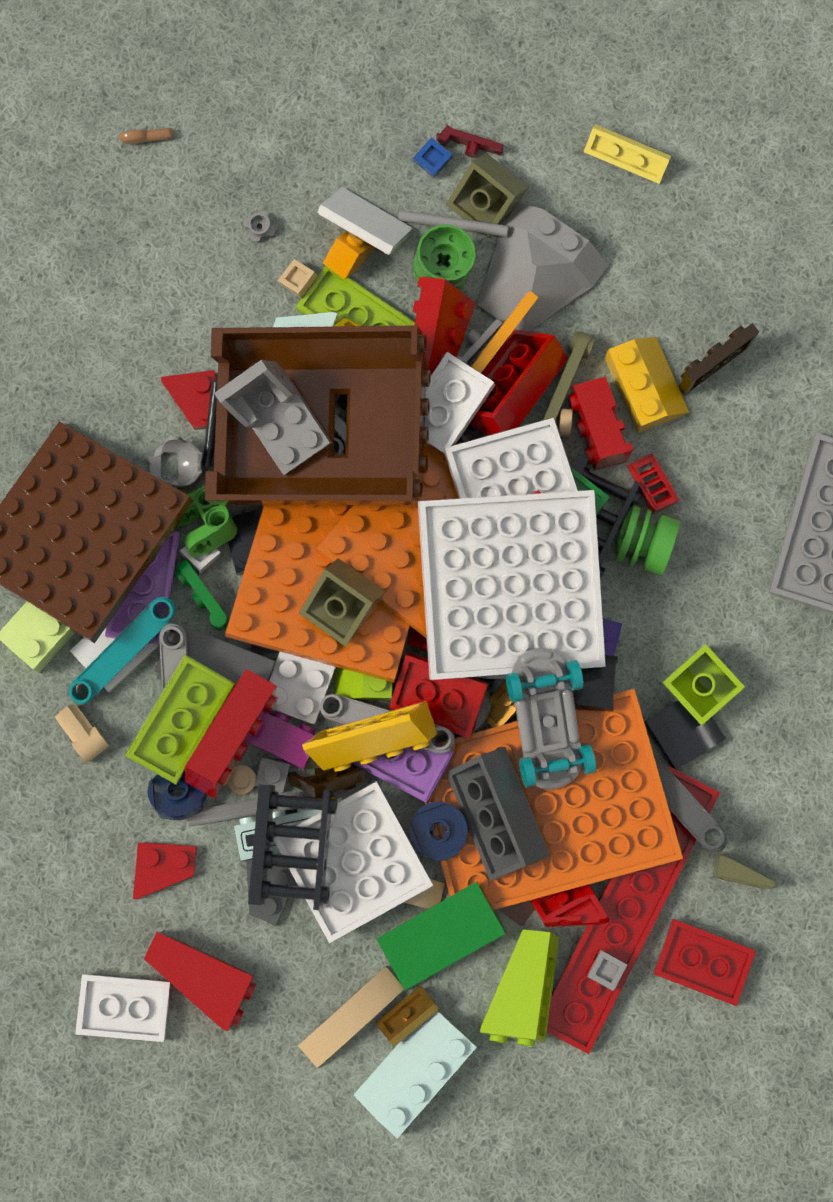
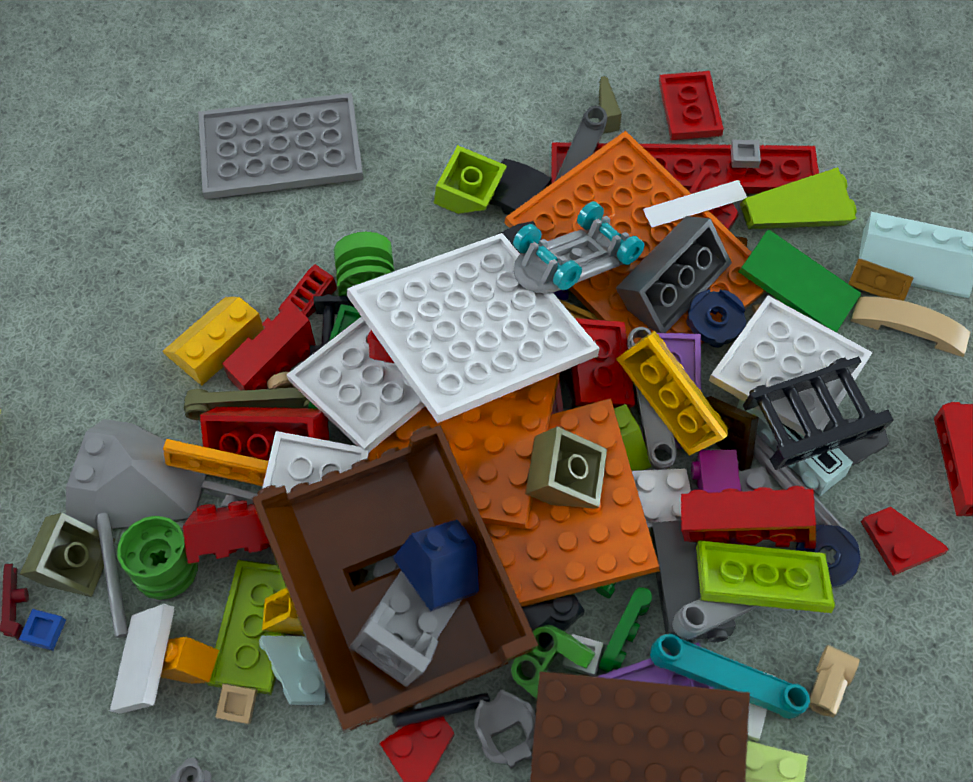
camera: 110 degrees left, 20 degrees down
(305, 458) = (440, 564): none -> dark blue slope
(569, 883) = (694, 203): none -> white sticker
(717, 357) = (165, 282): dark brown plate -> none

